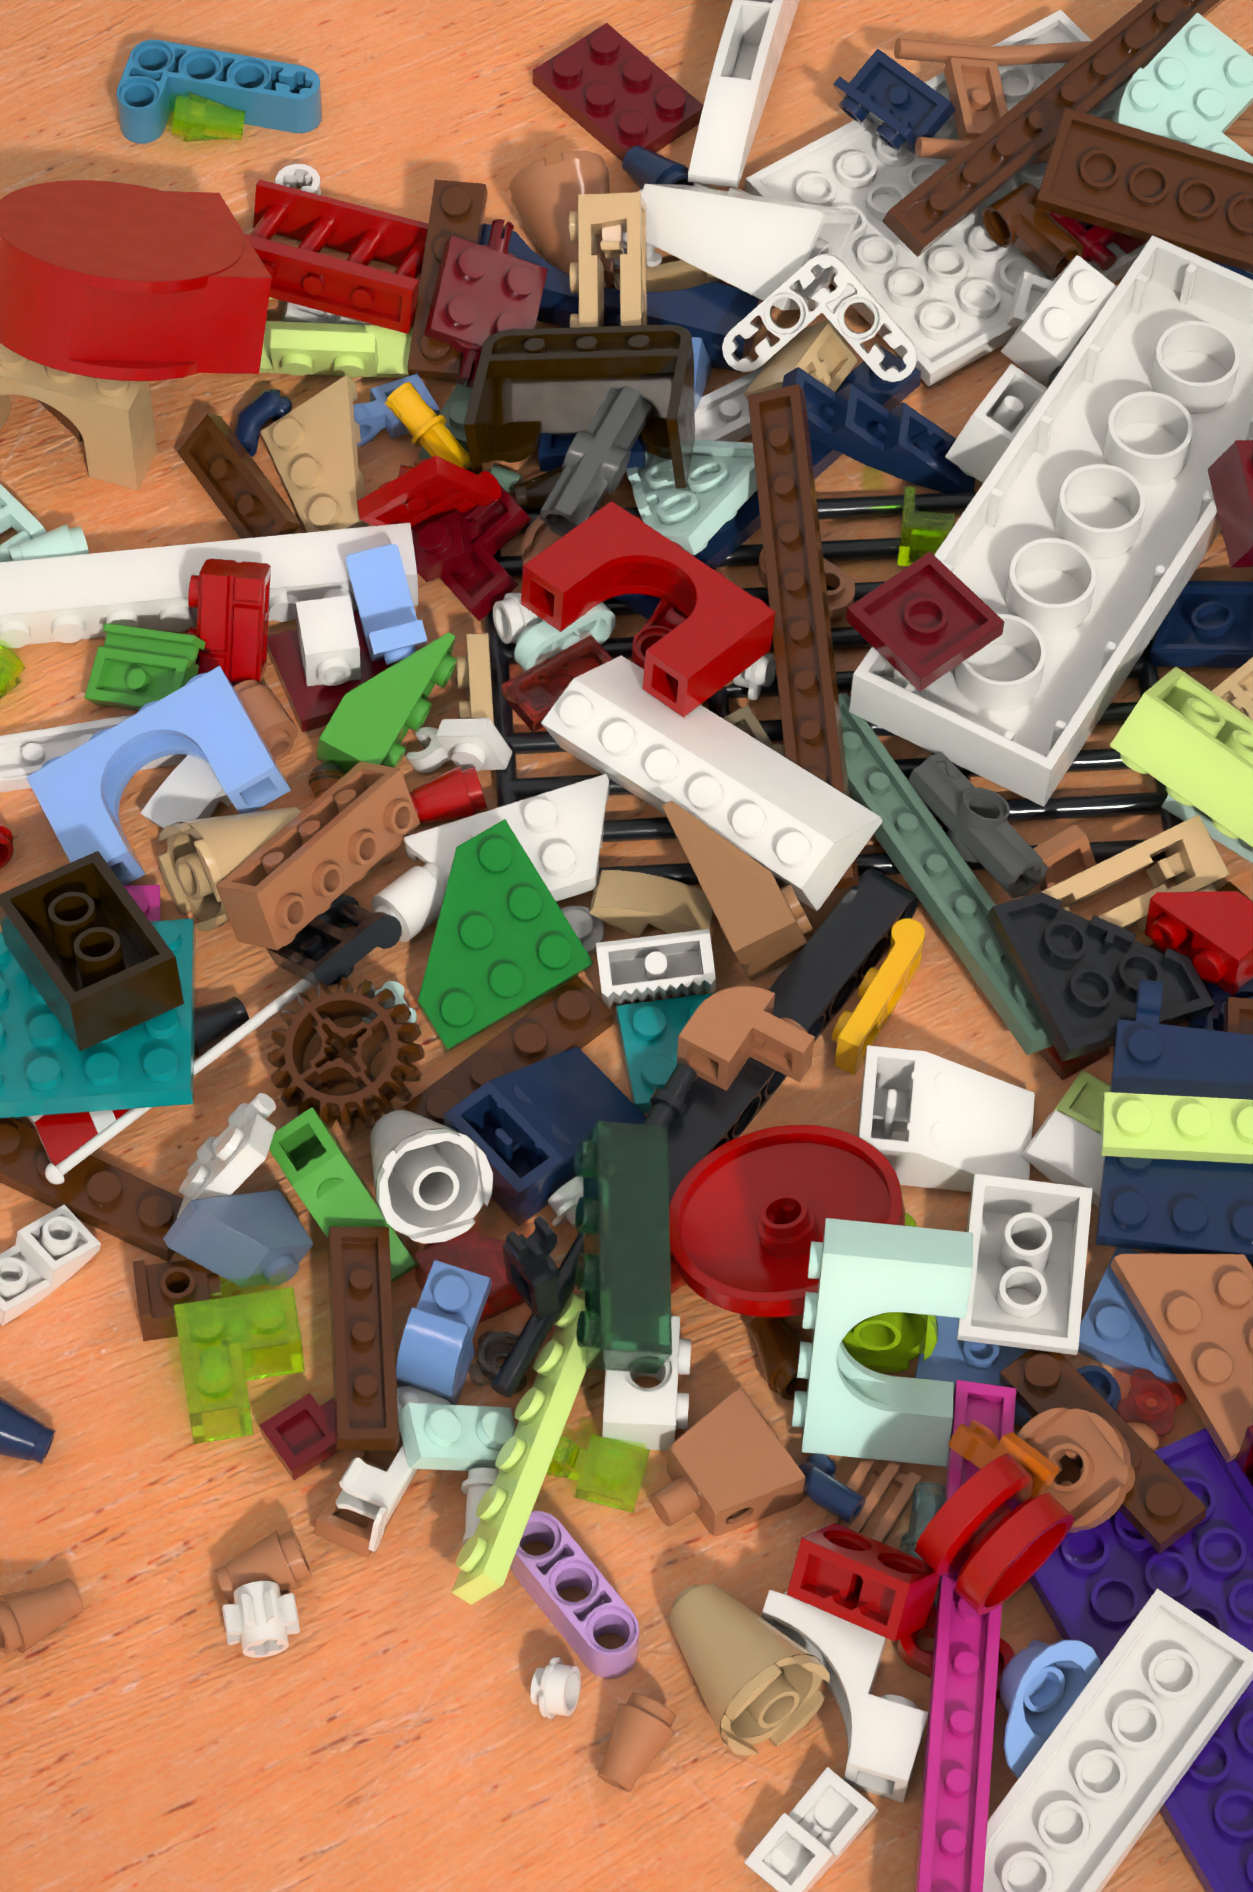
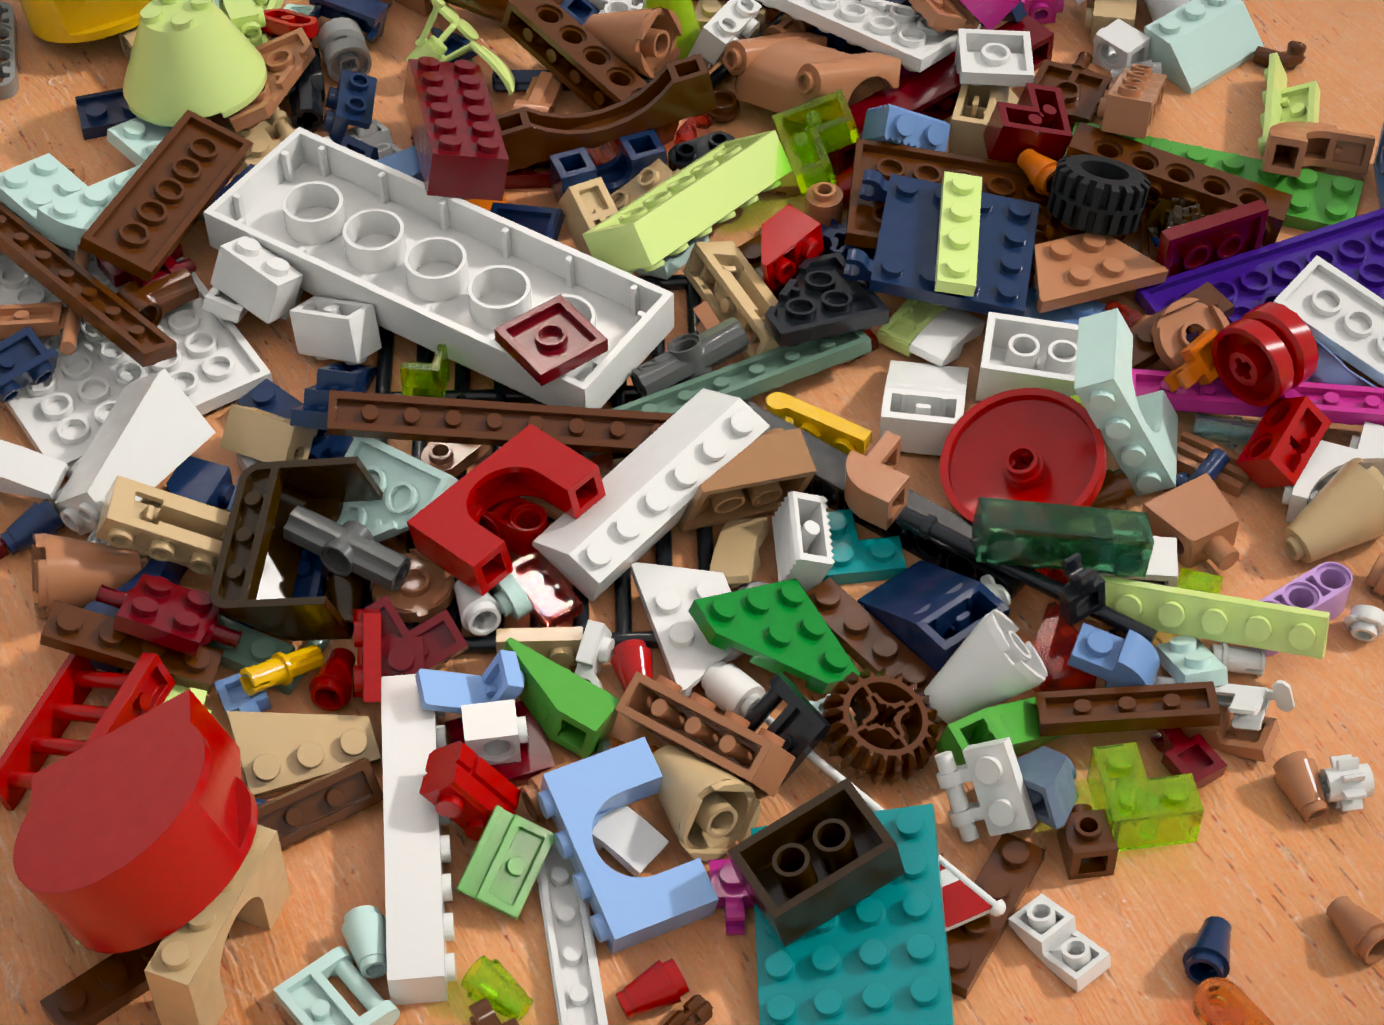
camera: 85 degrees left, 10 degrees down
(833, 306) = (228, 395): white beam -> none

